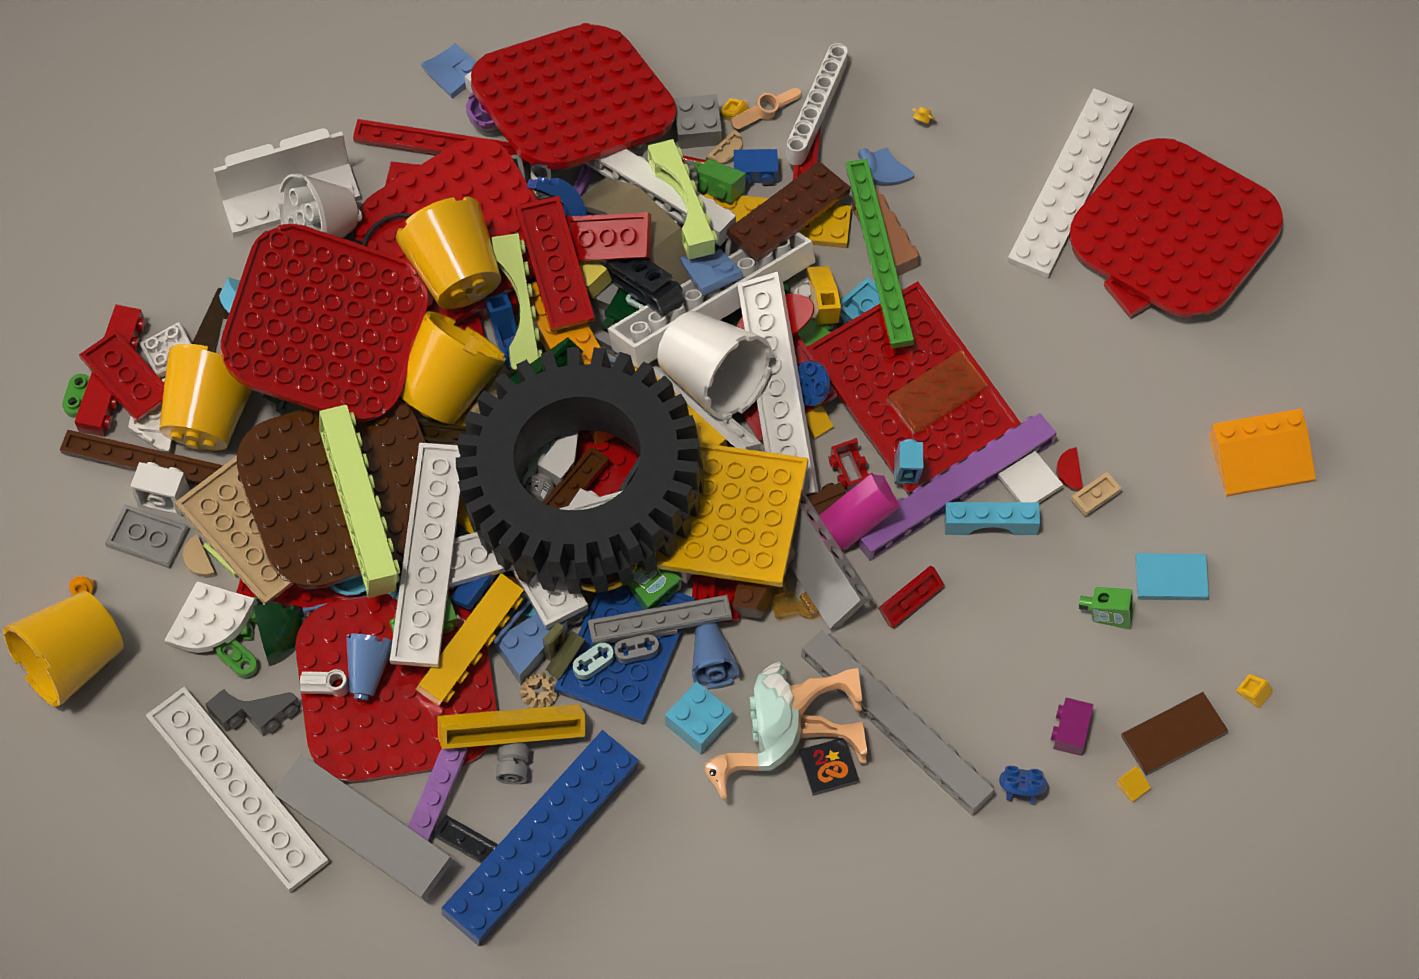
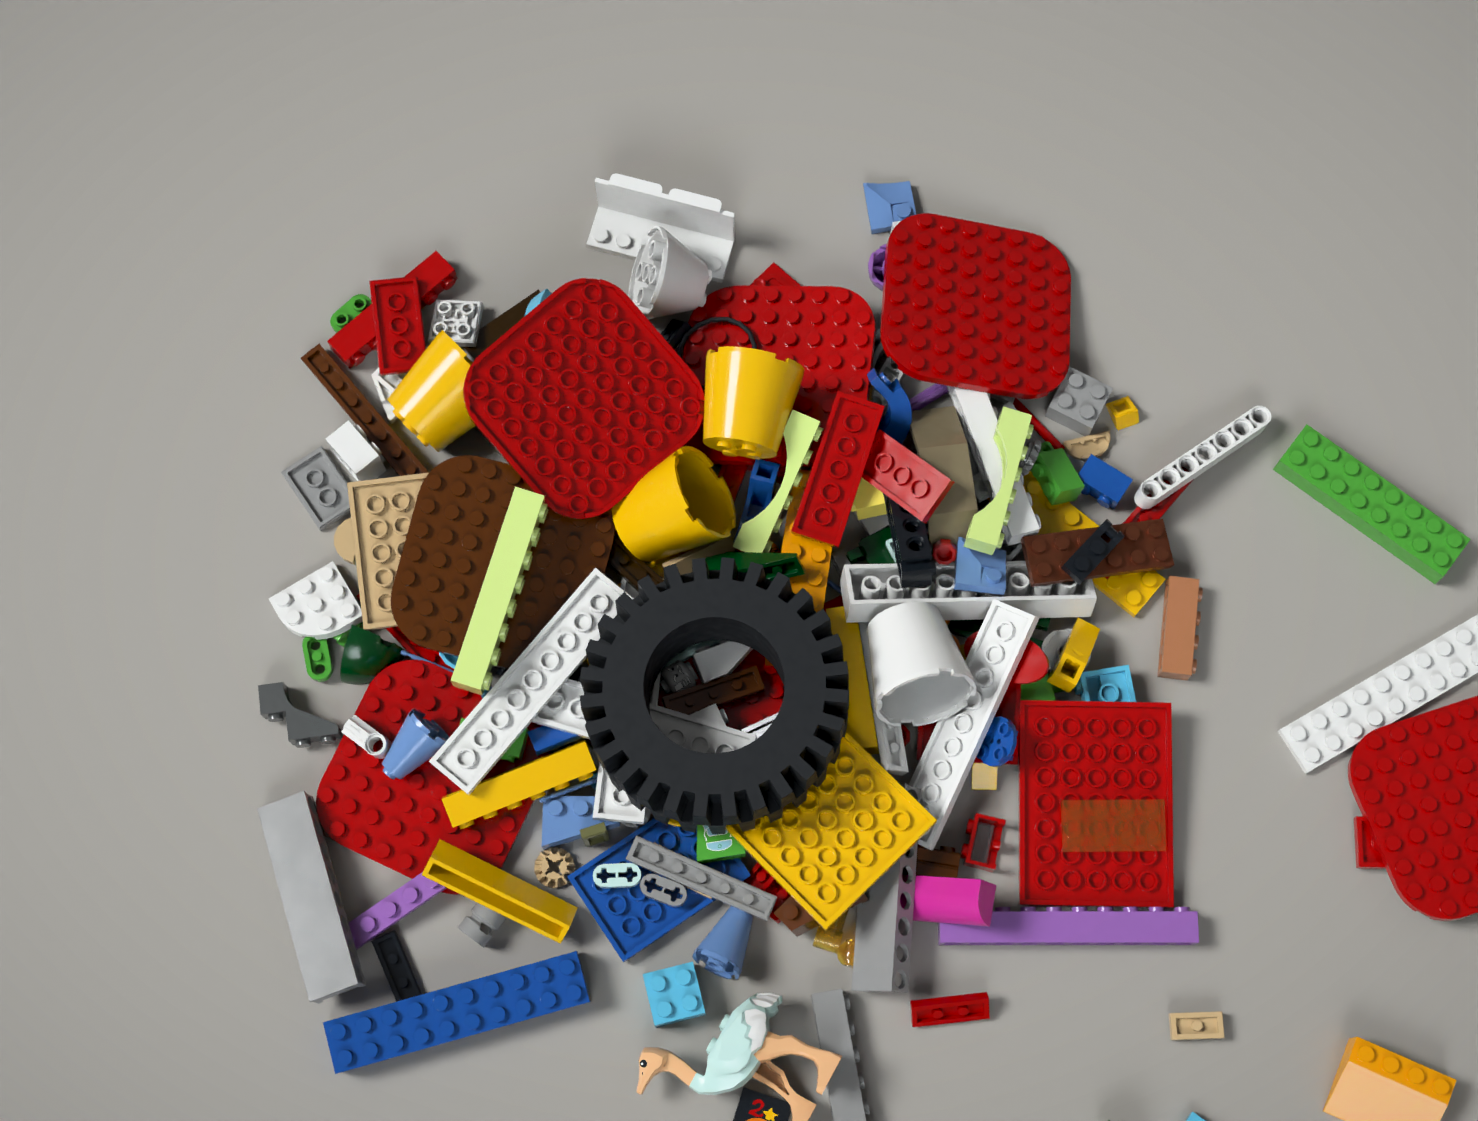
camera: 35 degrees right, 10 degrees up
(64, 645) = (173, 552): yellow cone -> none
(80, 584) = (234, 500): light orange plate -> none
(237, 789) = (235, 782): white plate -> none
(411, 138) = (811, 256): red plate -> none
(565, 654) = (597, 851): olive tile -> none
(678, 273) = (944, 551): none -> red tile
(758, 112) = (1140, 427): light nougat piece -> none
(786, 209) = (1092, 552): none -> black plate
(879, 254) = (1153, 652): bright green plate -> none
(885, 168) = (1223, 560): medium blue arm -> none
(908, 462) = (1034, 880): medium azure brick -> none
(923, 114) = (1299, 531): yellow plate -> none
(960, 65) = (1371, 504): none -> bright green brick
(966, 517) = (1078, 982): medium azure arch -> none
(1030, 479) = (1142, 970): white tile -> none
(1069, 469) = (1187, 983): red tile -> none

